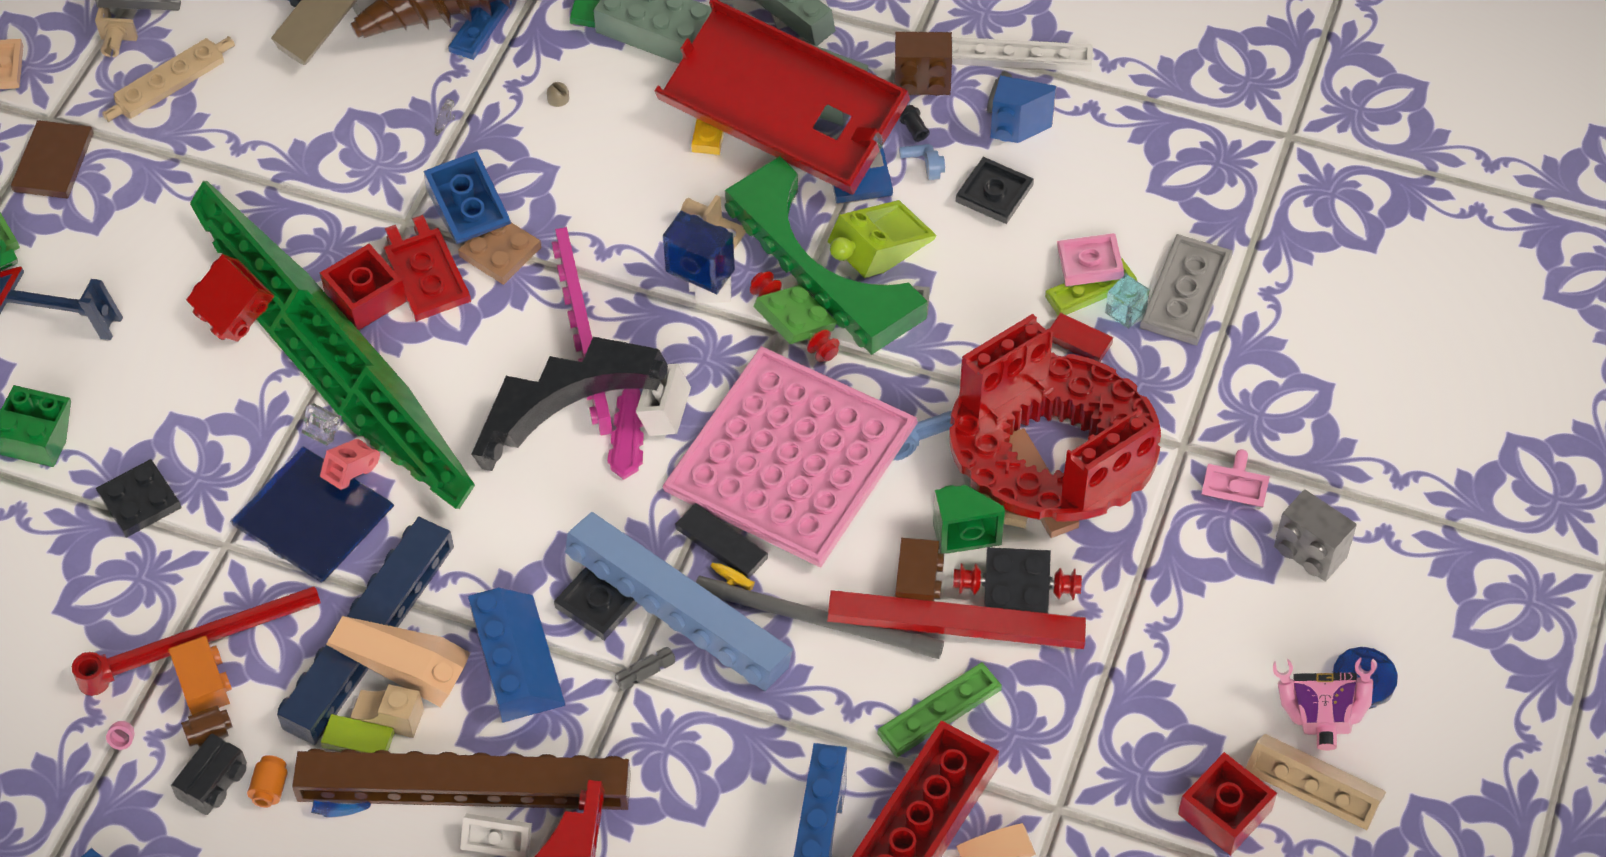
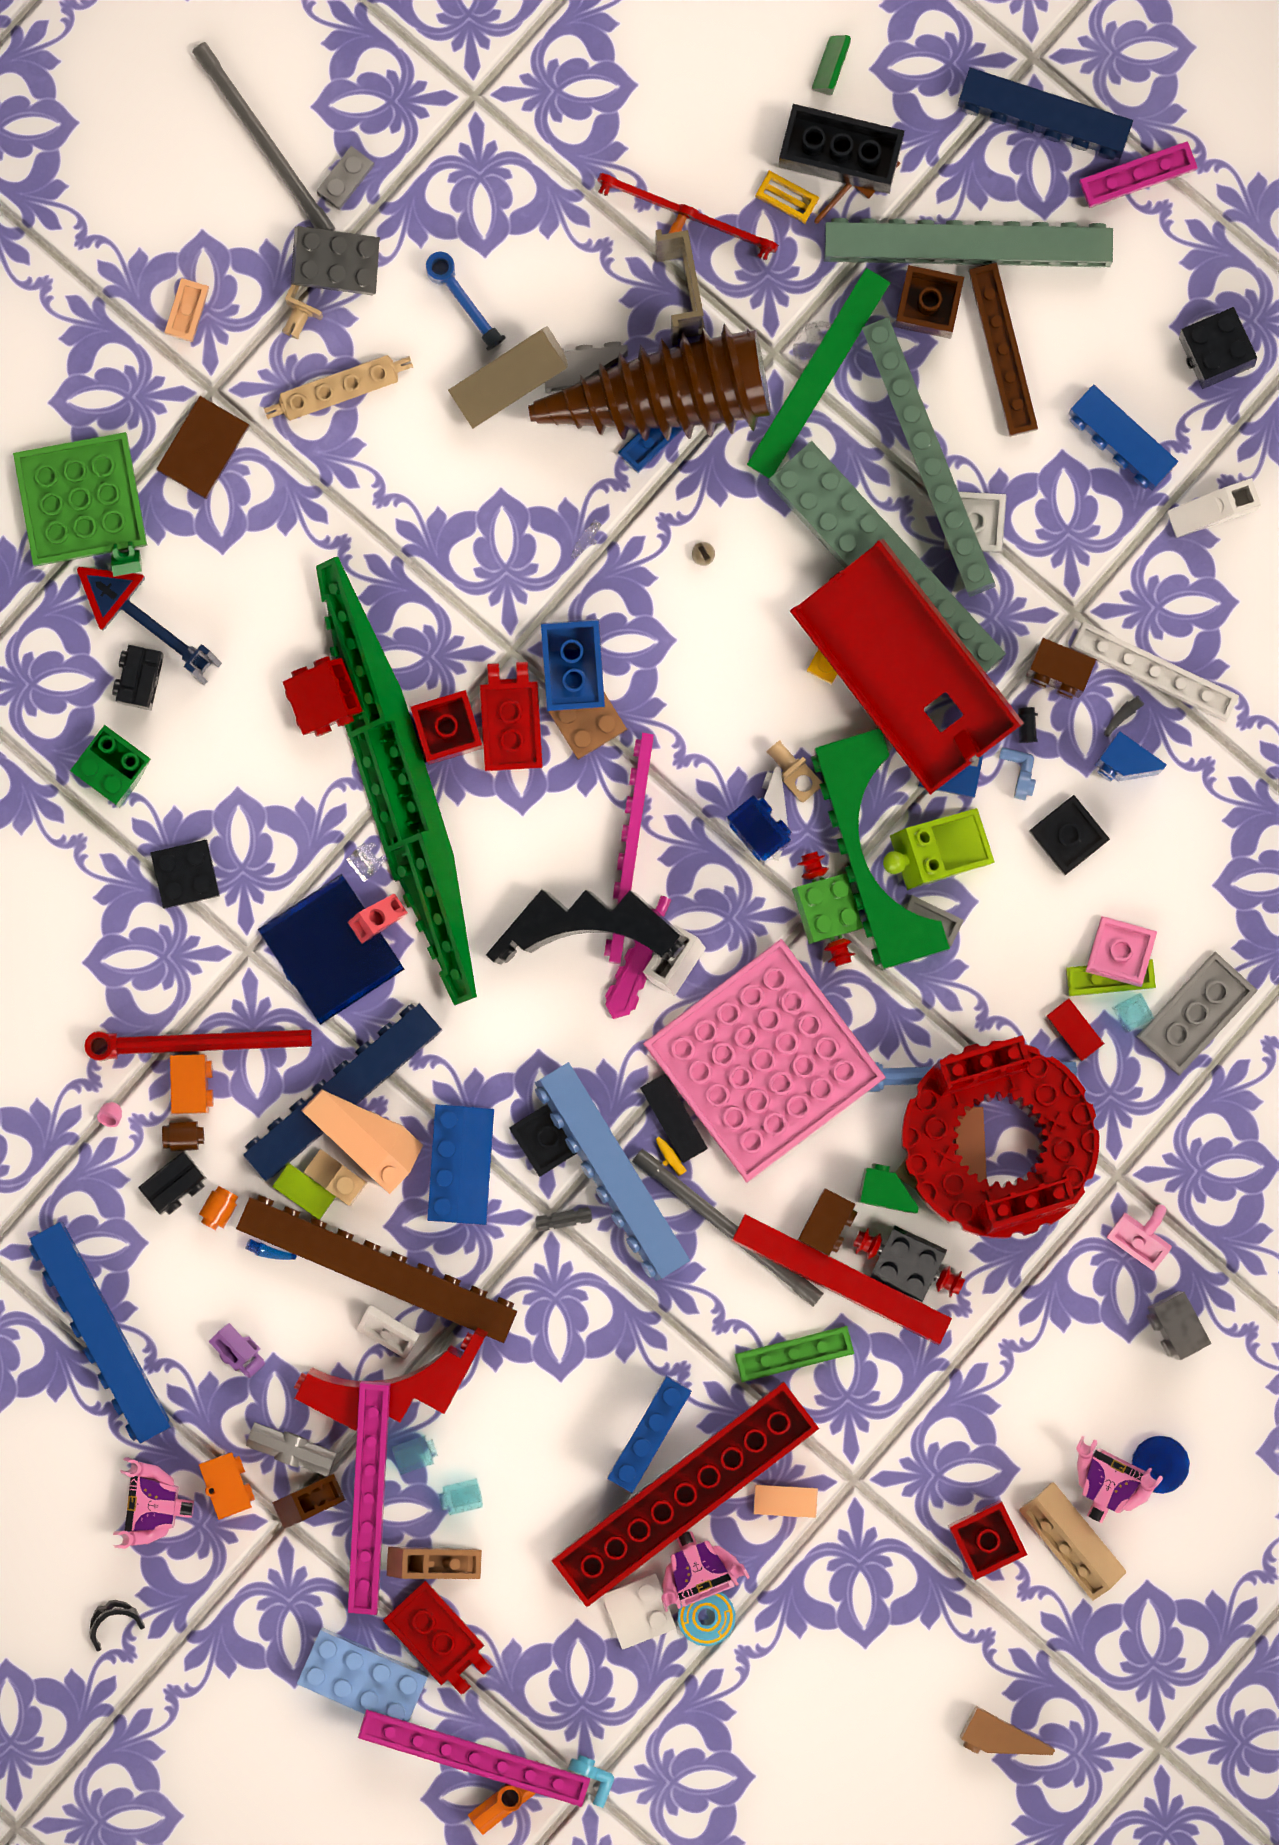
camera: 20 degrees right, 30 degrees up
(40, 347) = (138, 677): none -> black brick

